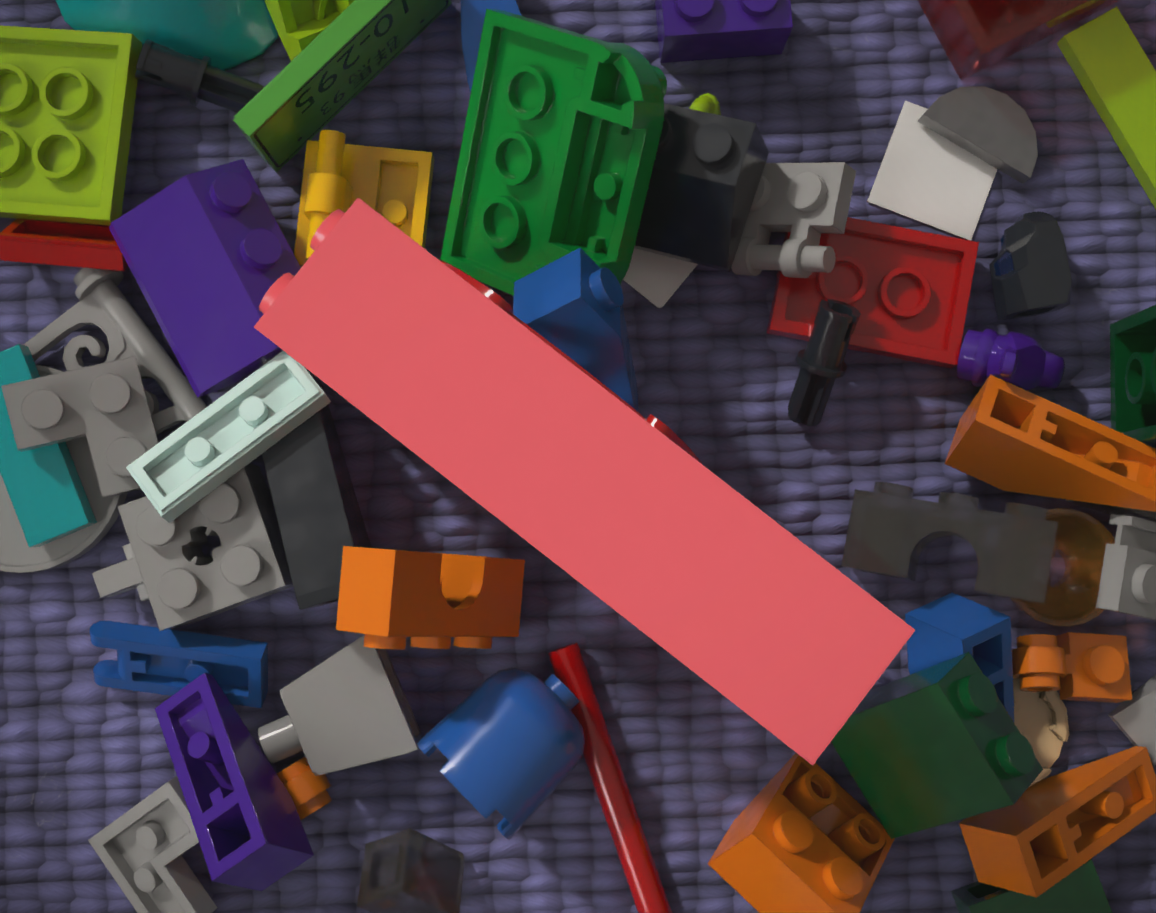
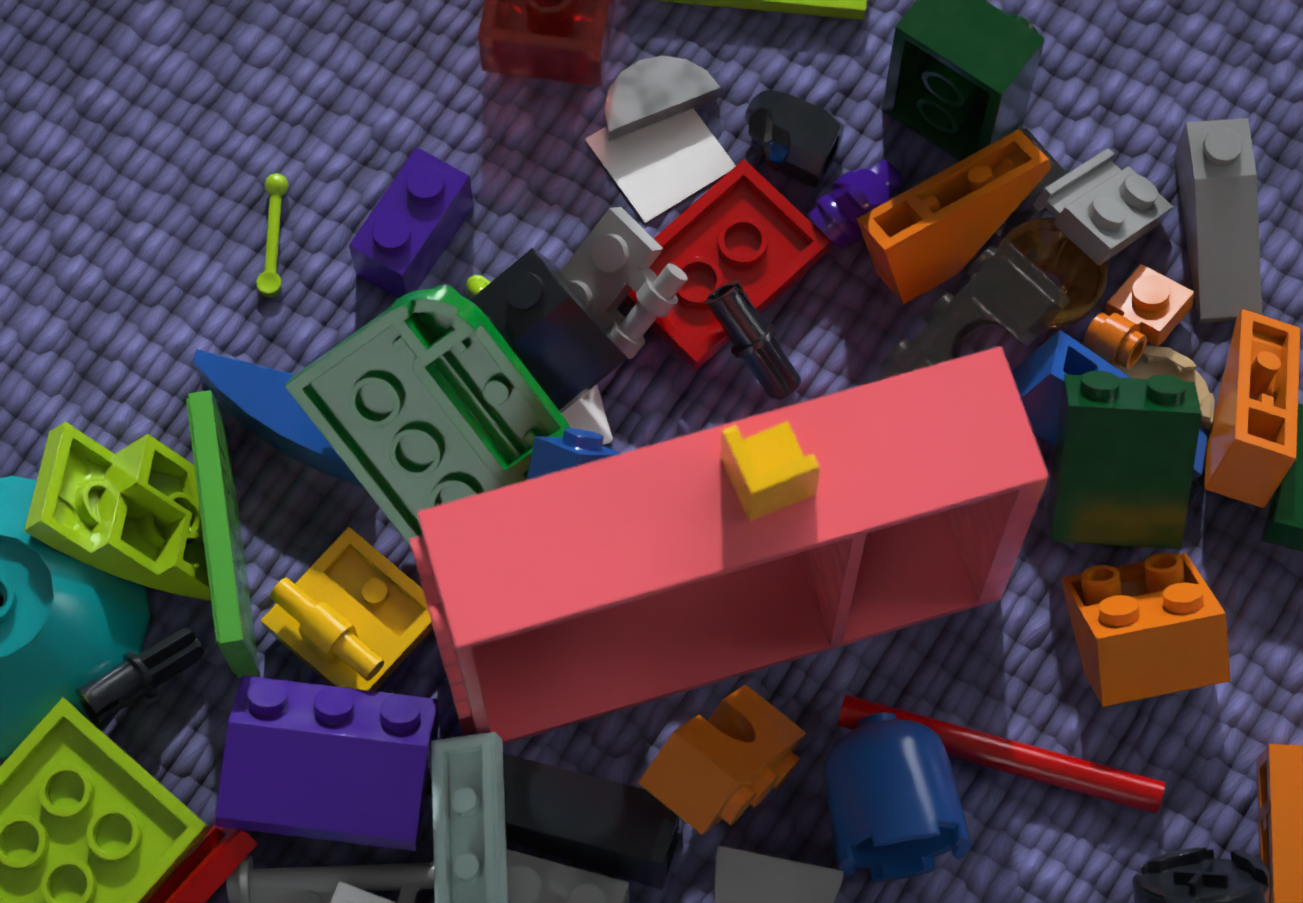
camera: 50 degrees left, 15 degrees down
(624, 495) = (768, 469): none -> yellow panel

